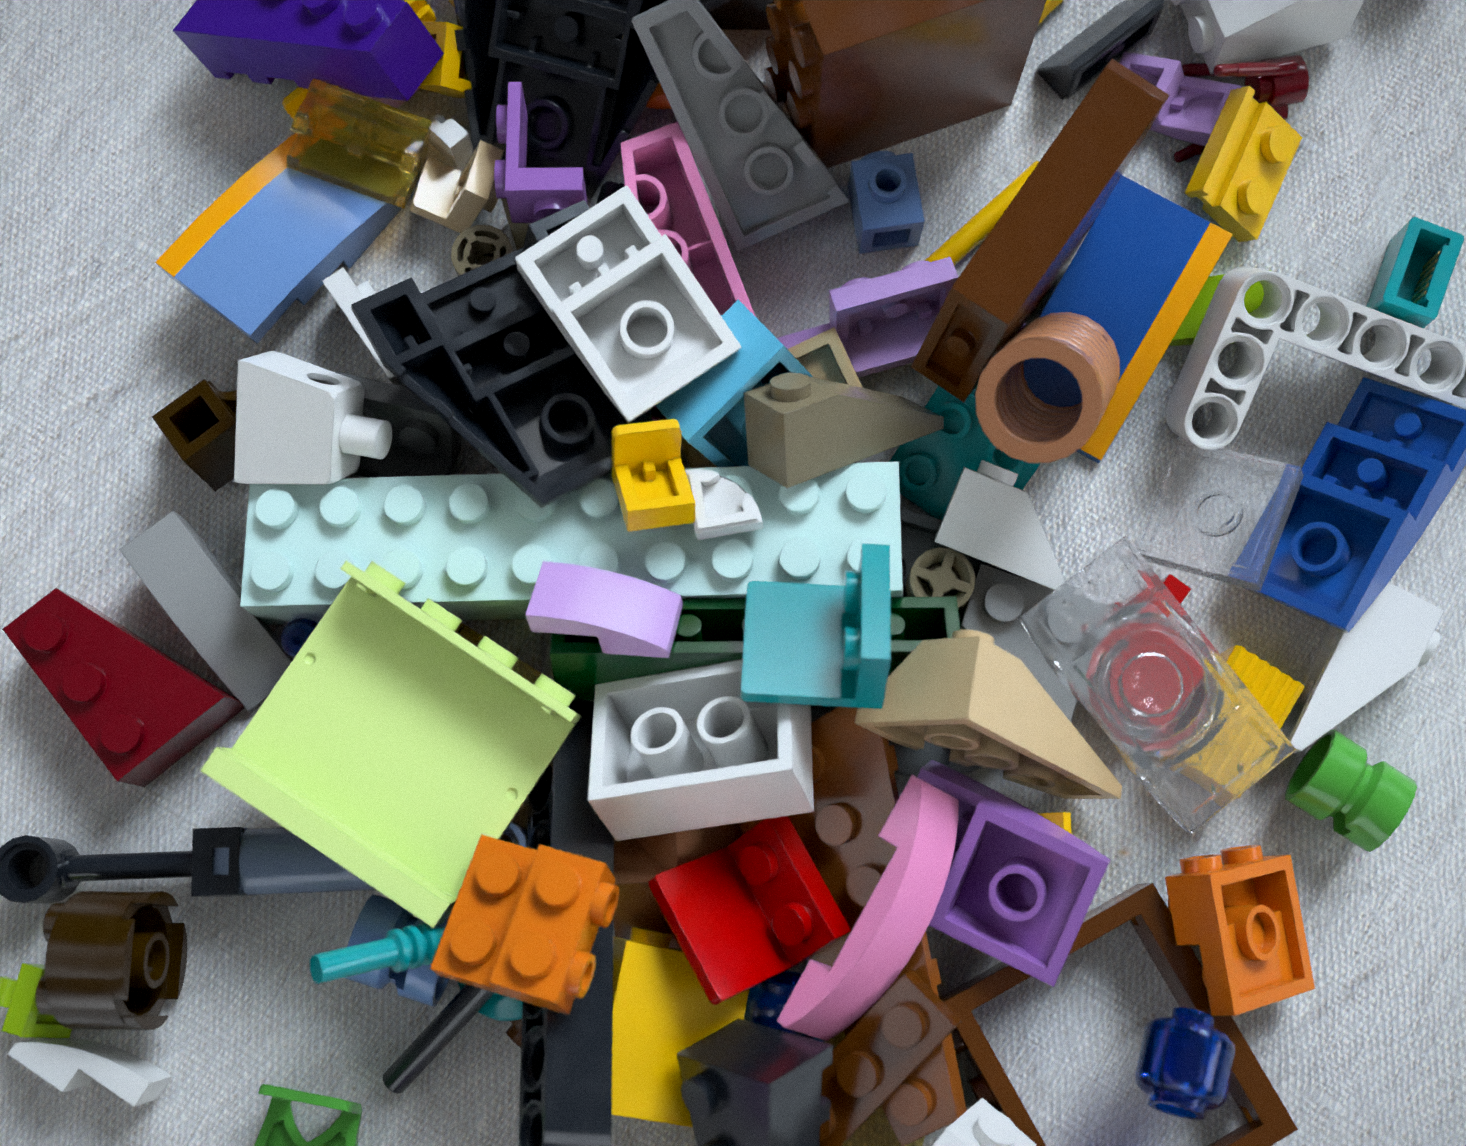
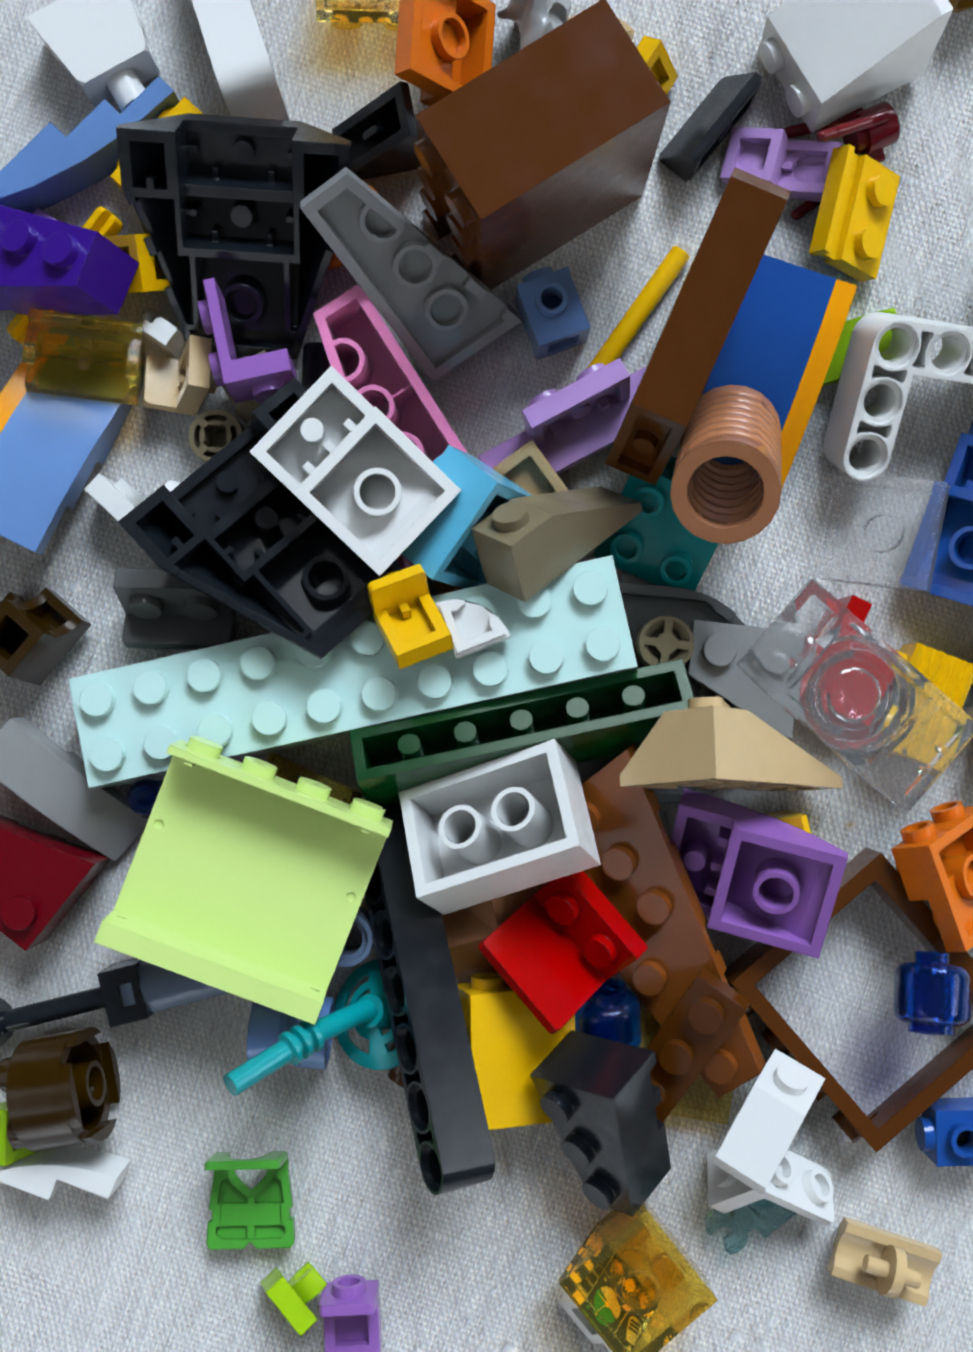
camera: 10 degrees left, 10 degrees up
(301, 423) = (99, 623): white torso -> none
(435, 1037) = (344, 1076): black bar -> none
(527, 923) = (389, 1006): orange plate -> none
(616, 608) = (394, 733): lavender slope -> none
(820, 639) = (579, 727): teal bracket -> none
(892, 922) = (693, 865): bright pink slope -> none
(998, 525) = (701, 587): white slope -> none

